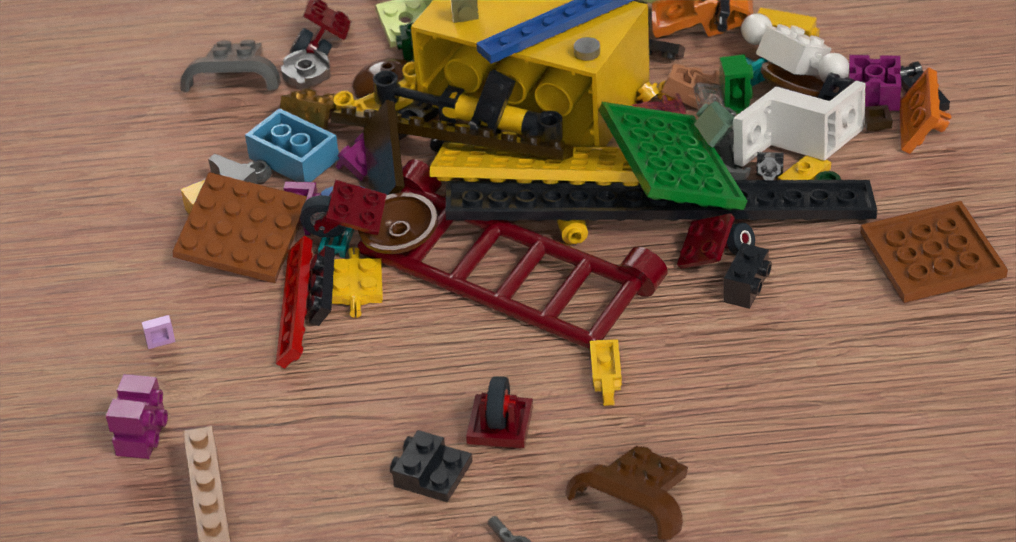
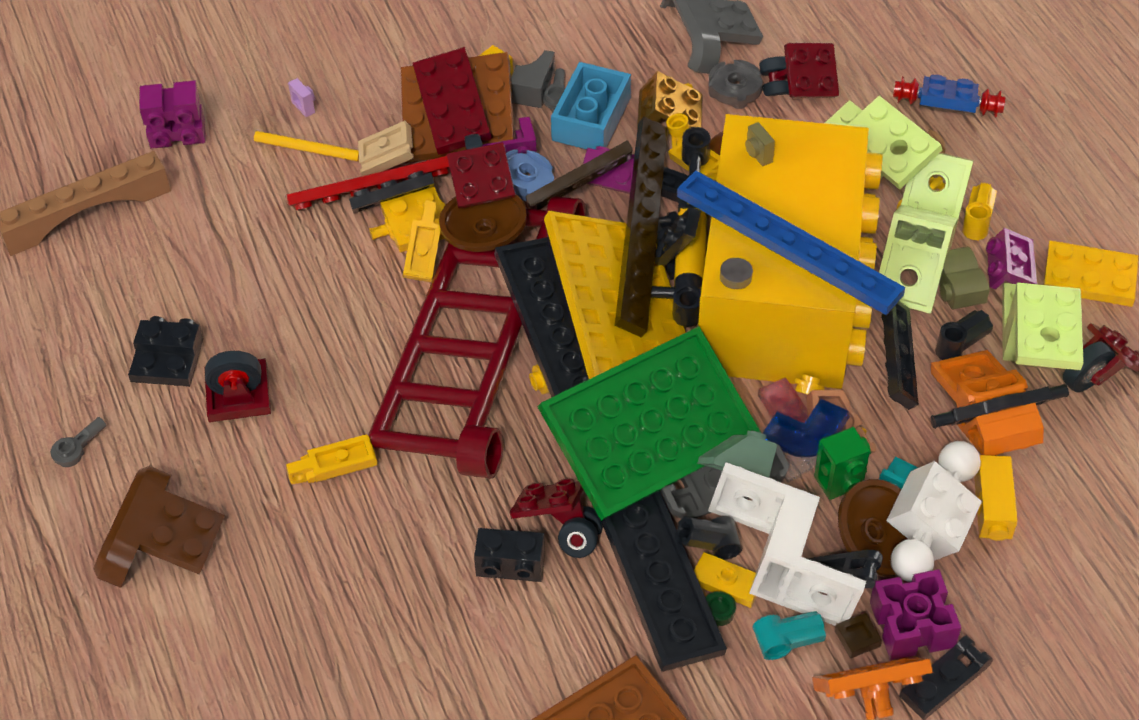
camera: 70 degrees right, 10 degrees up
(218, 342) = (308, 146): none -> yellow bar
(243, 219) = (451, 99): none -> dark red plate
(265, 281) = (385, 149): none -> tan plate
(394, 272) = (422, 245): none -> yellow hinge
(707, 87) = (803, 438): none -> clear blue plate
(864, 149) = (780, 636): none -> teal piece

